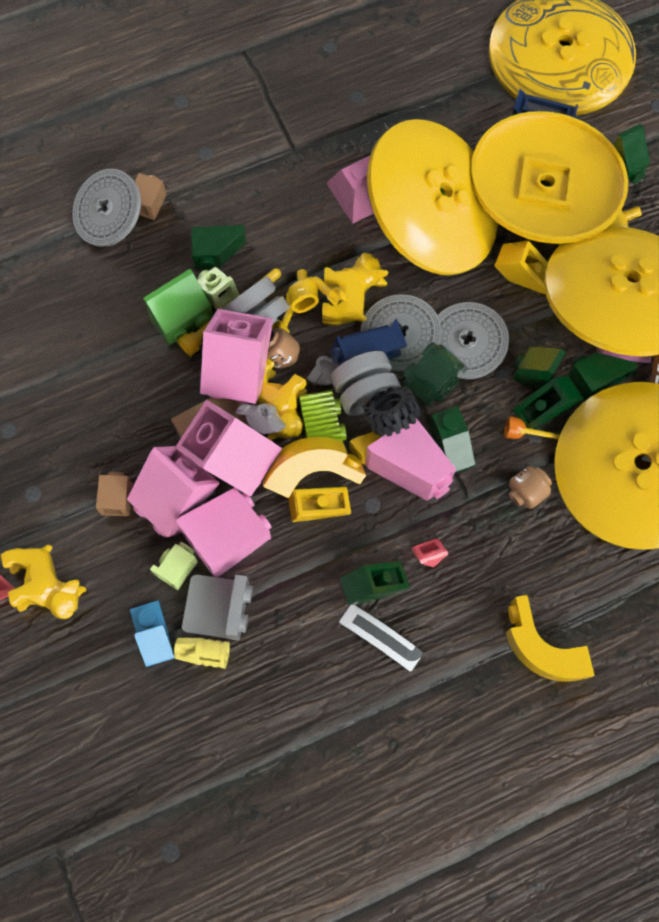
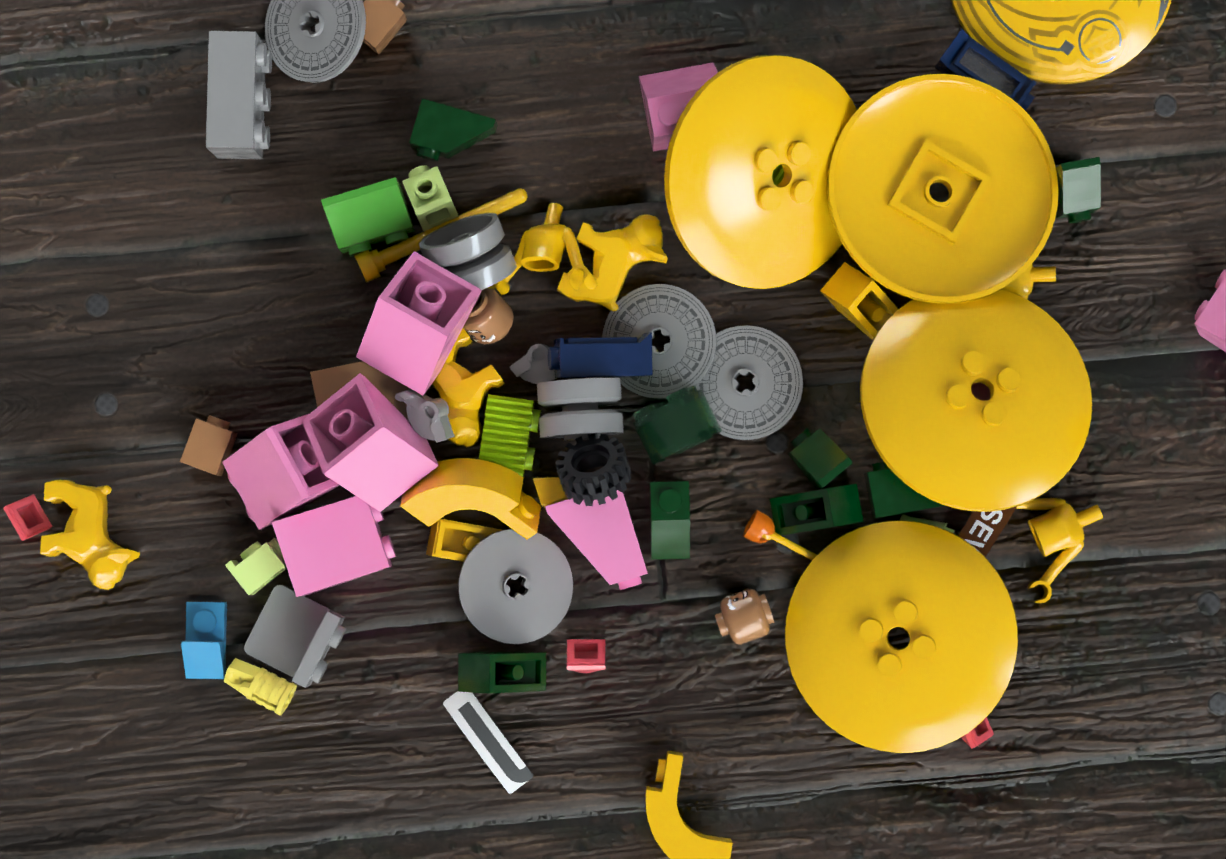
camera: 20 degrees right, 15 degrees up
(67, 261) = (237, 95): none -> light grey piece
(344, 532) = (524, 615): none -> light grey piece

